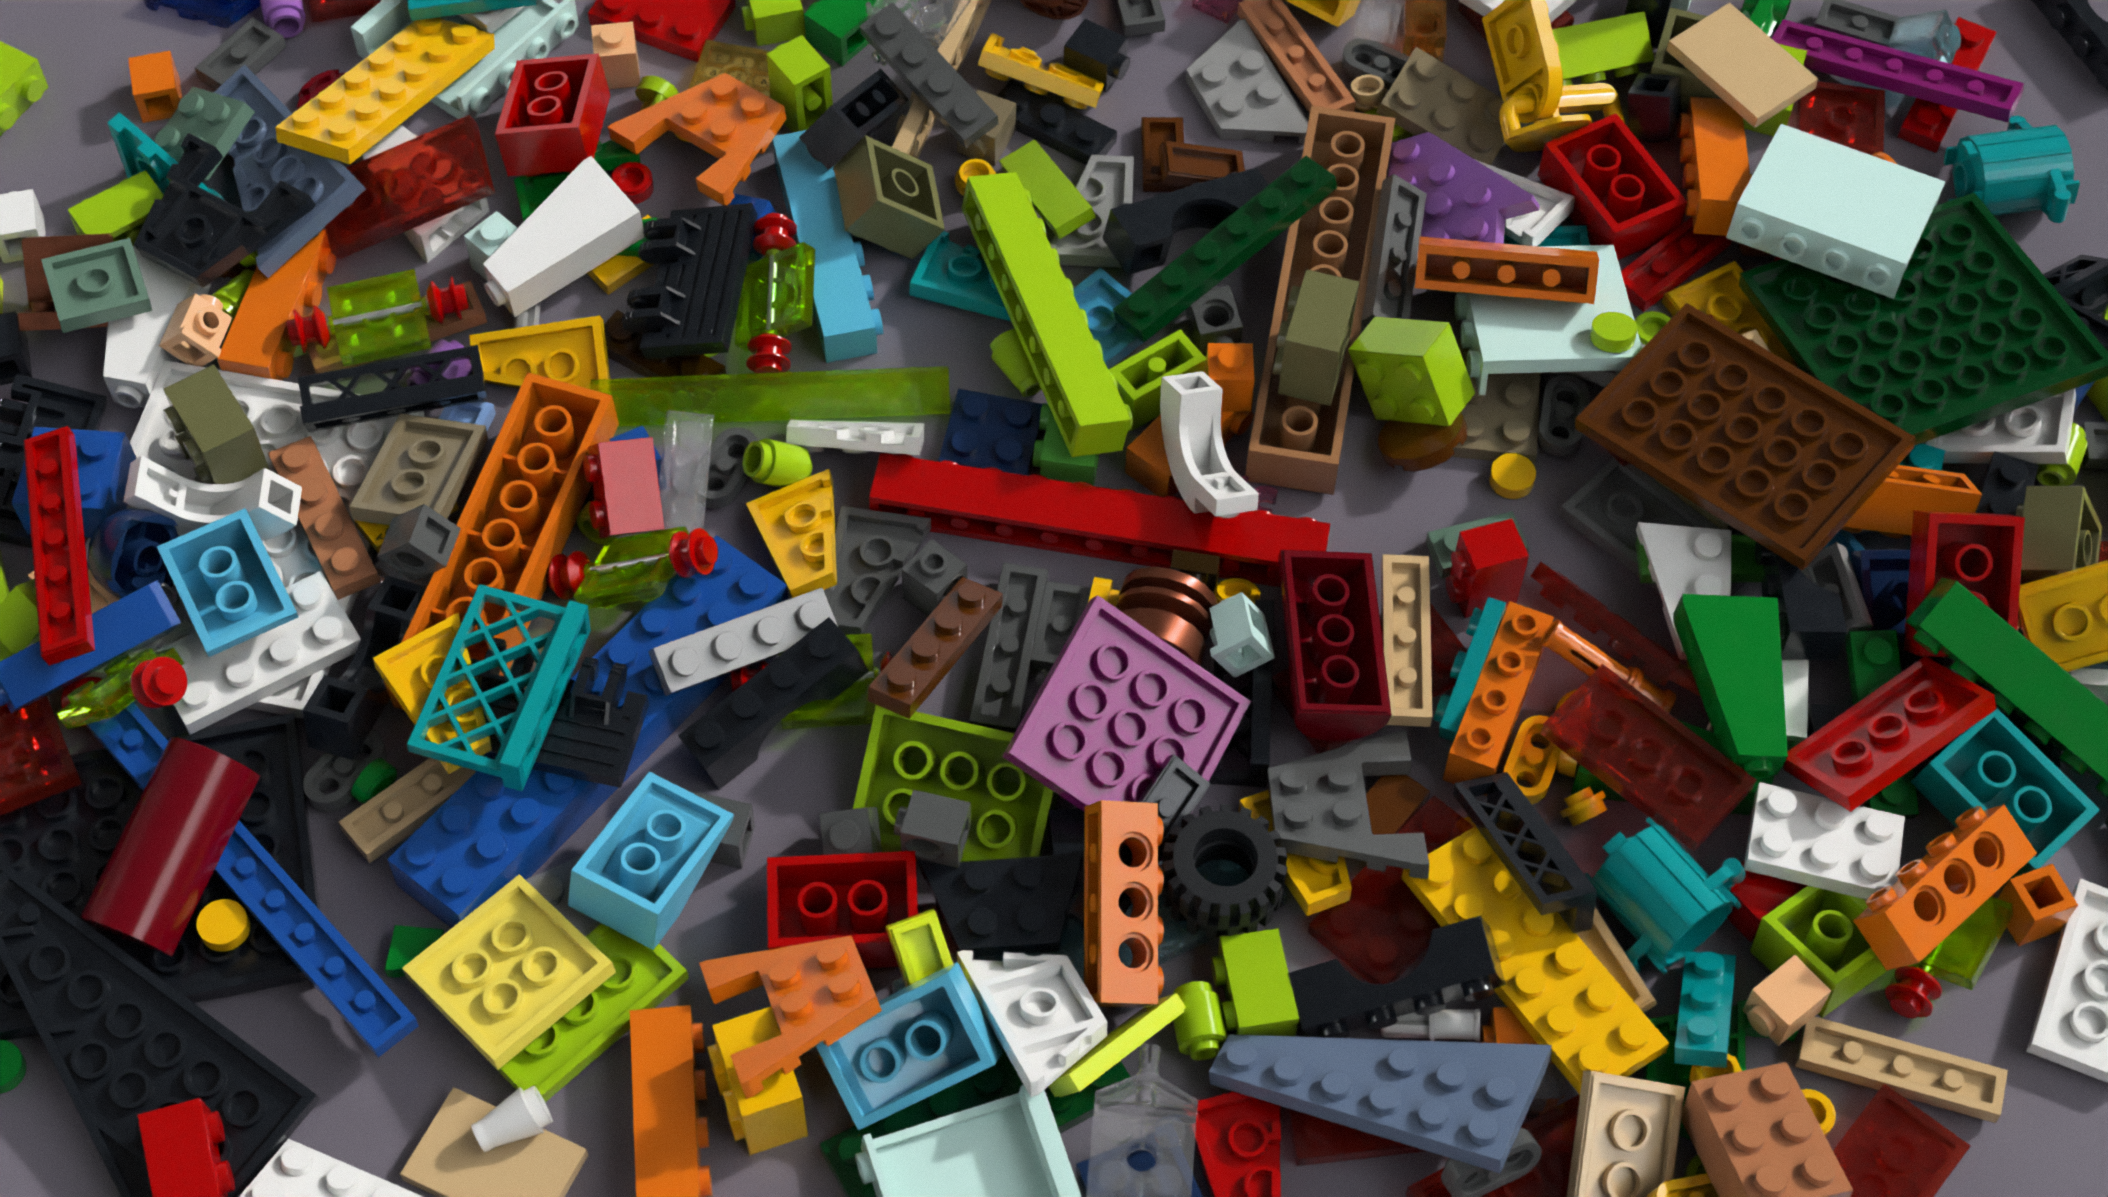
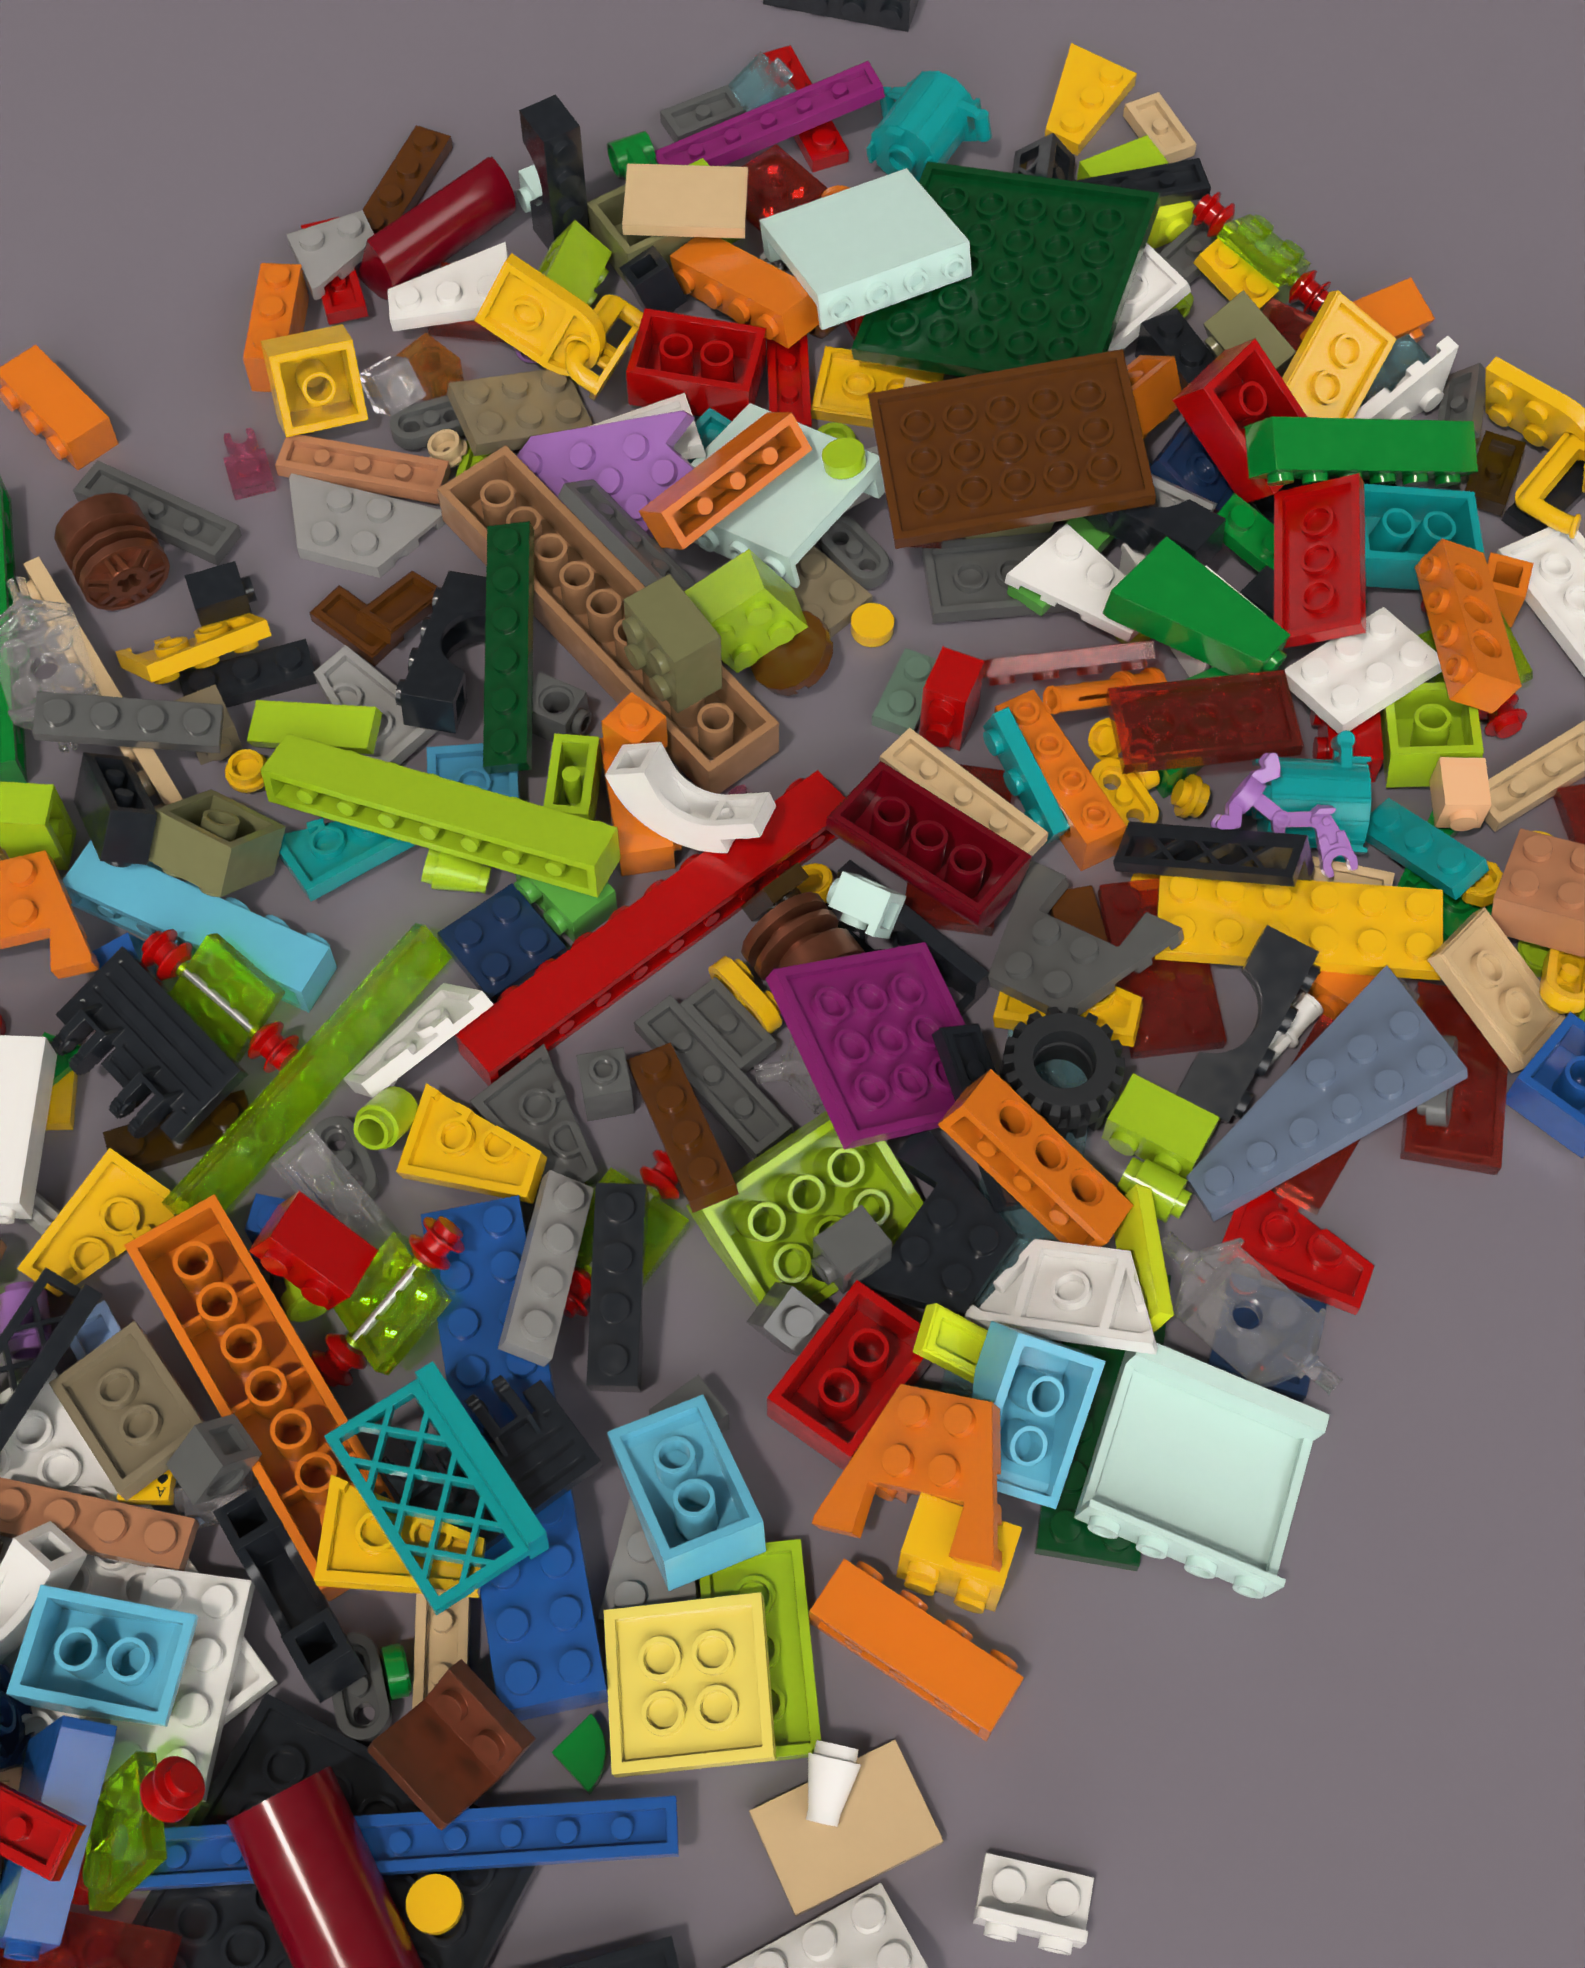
camera: 50 degrees left, 5 degrees up
(333, 845) = (452, 1745): none -> copper bracket
(1626, 920) = (1329, 838): none -> medium lavender piece

